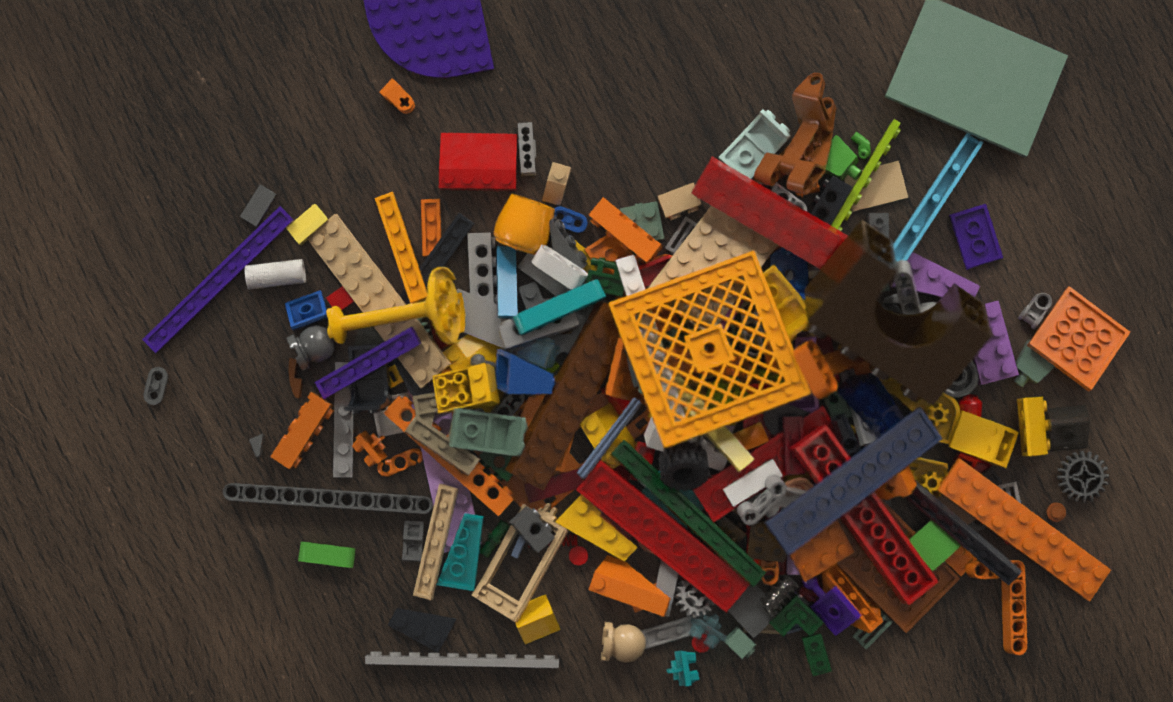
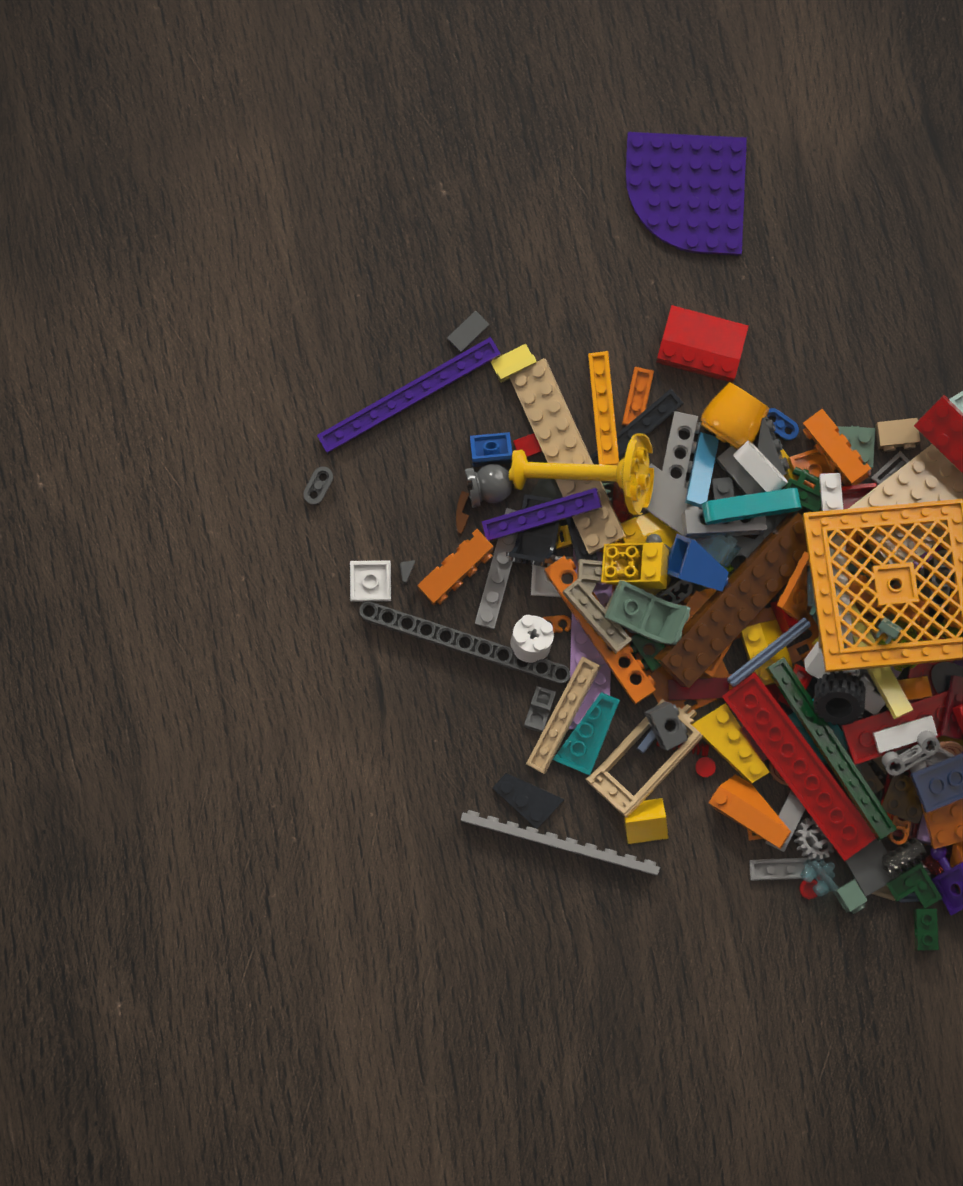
camera: 15 degrees right, 5 degrees down
(227, 462) = (370, 581): none -> white tile
(272, 273) = (462, 403): white piece -> none
(327, 554) = (448, 700): bright green beam -> none
(372, 445) = (523, 599): orange hips -> none
(396, 95) = (635, 255): orange piece -> none
(397, 485) = (532, 638): none -> white brick
(494, 538) = (624, 727): dark green pin -> none
(532, 153) = (753, 366): light grey piece -> none
(556, 183) = (776, 385): tan slope -> none
(623, 643) = (730, 866): tan tile -> none
(680, 668) = (783, 909): teal hips -> none
(713, 393) = (888, 627): none -> sand green tile

